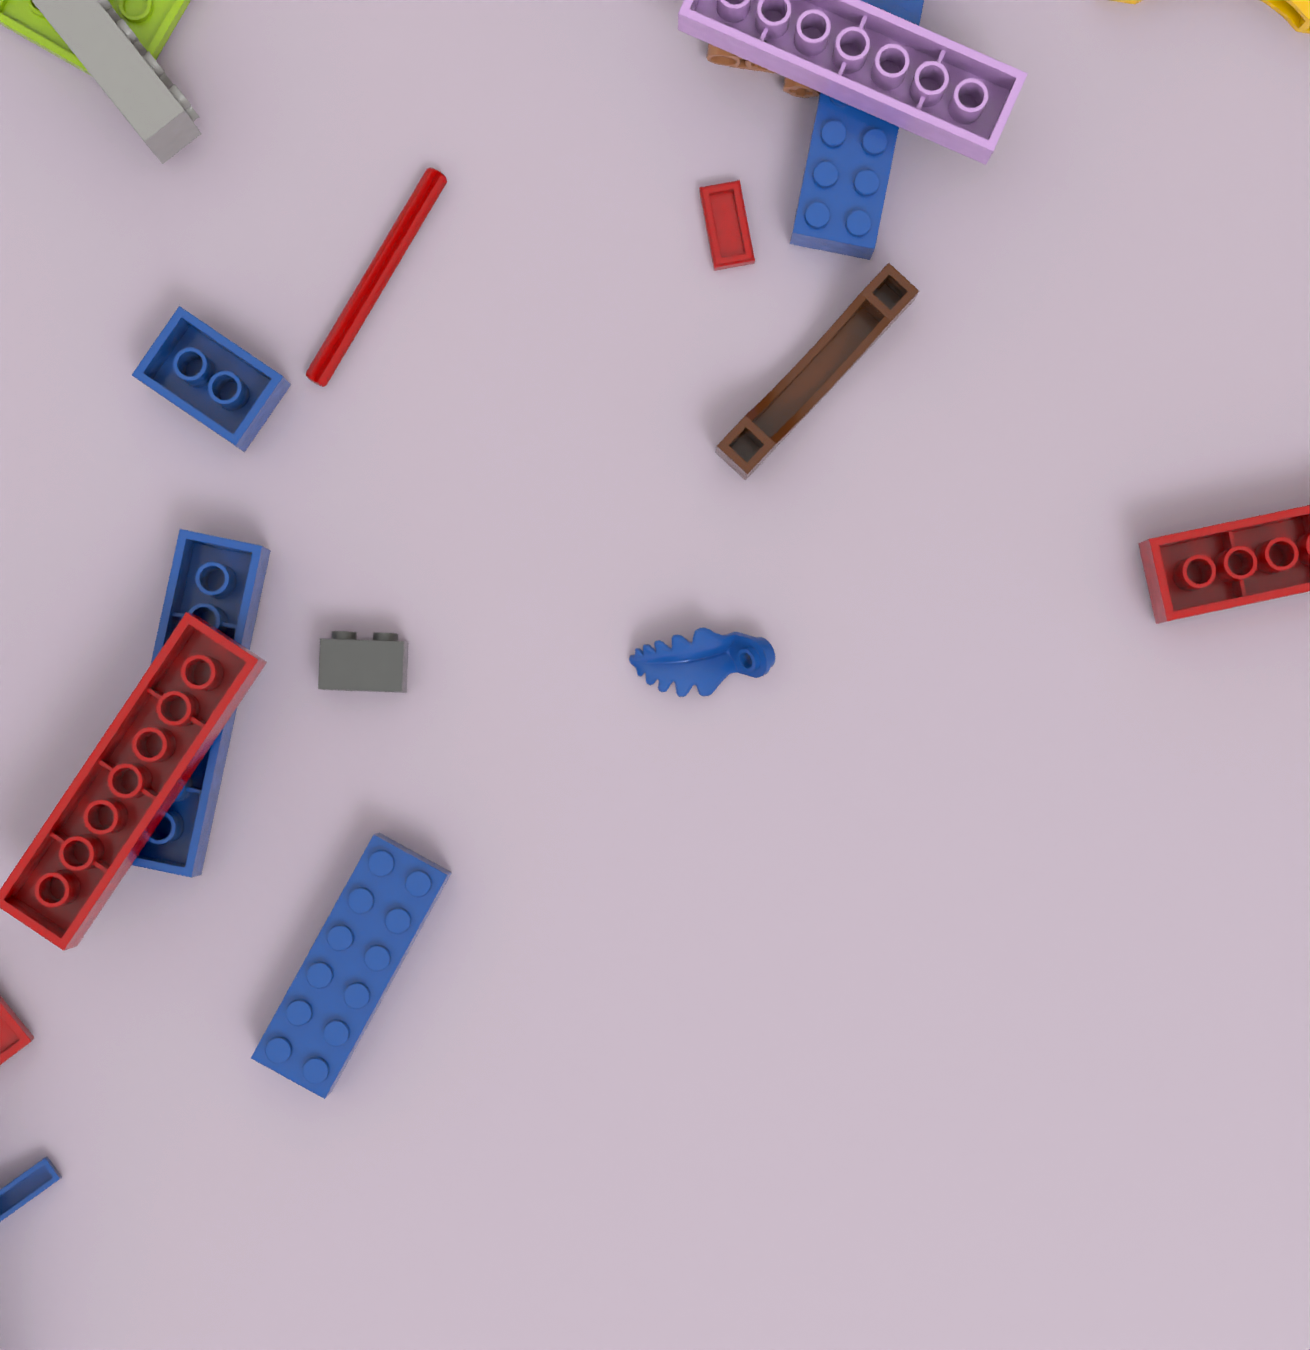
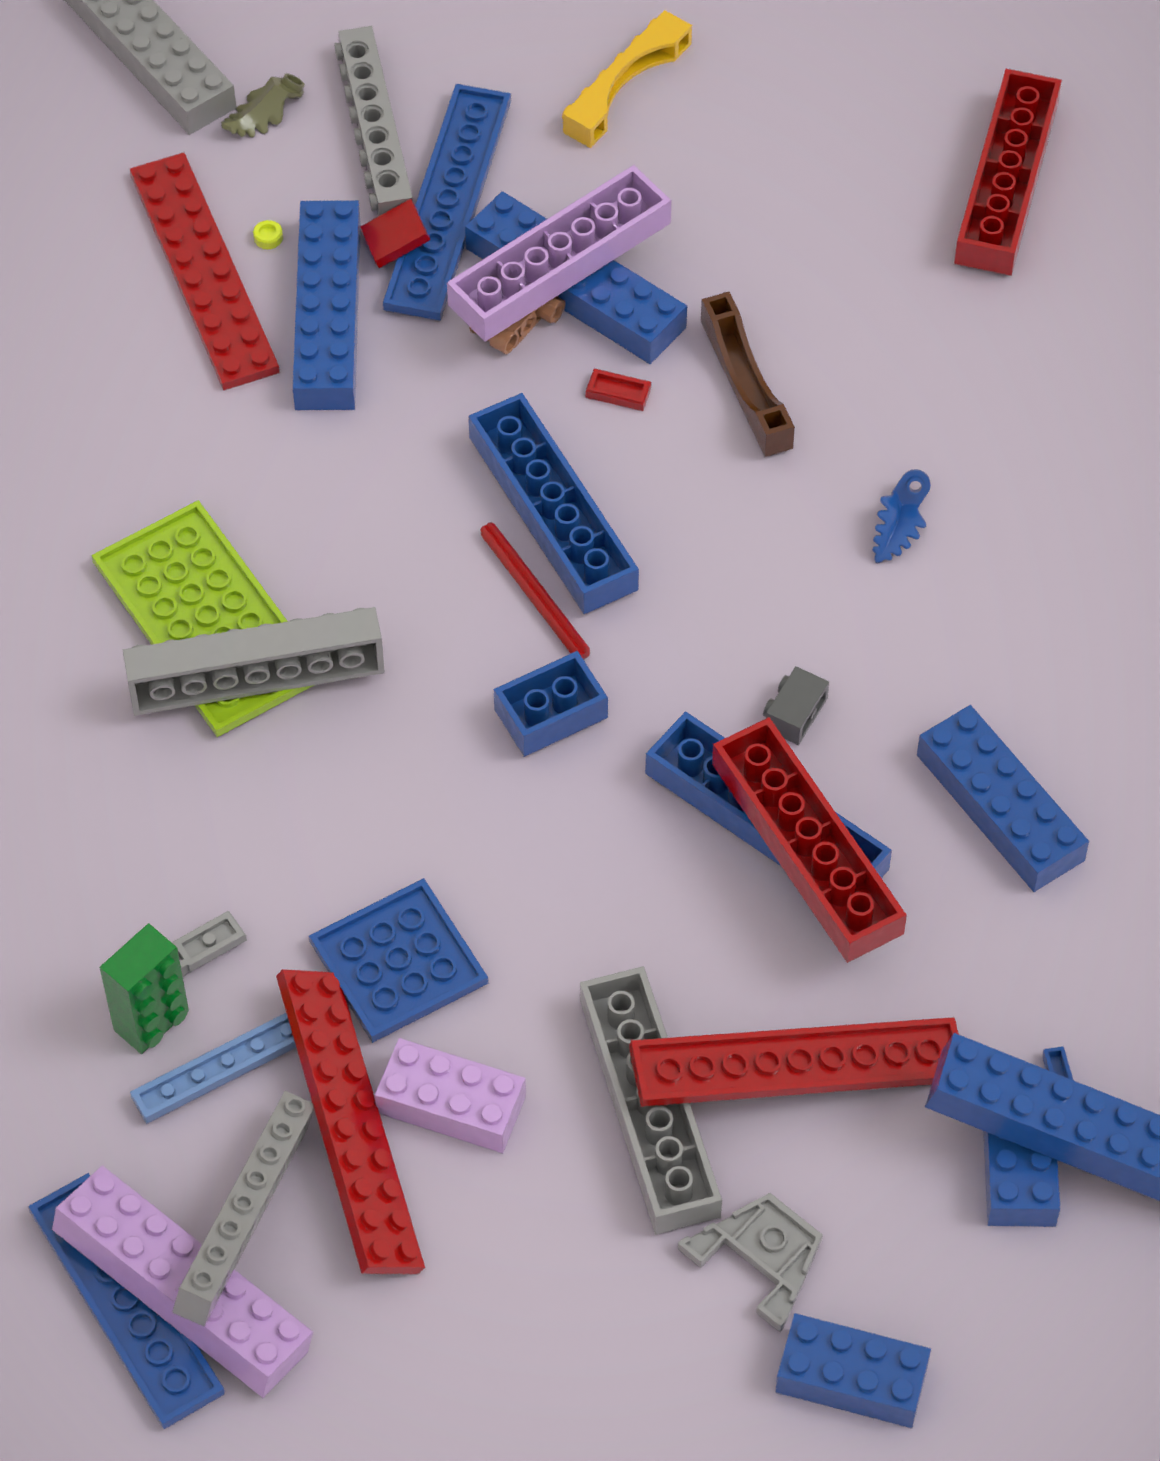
camera: 60 degrees left, 30 degrees down
(500, 233) = (553, 503): none -> blue brick

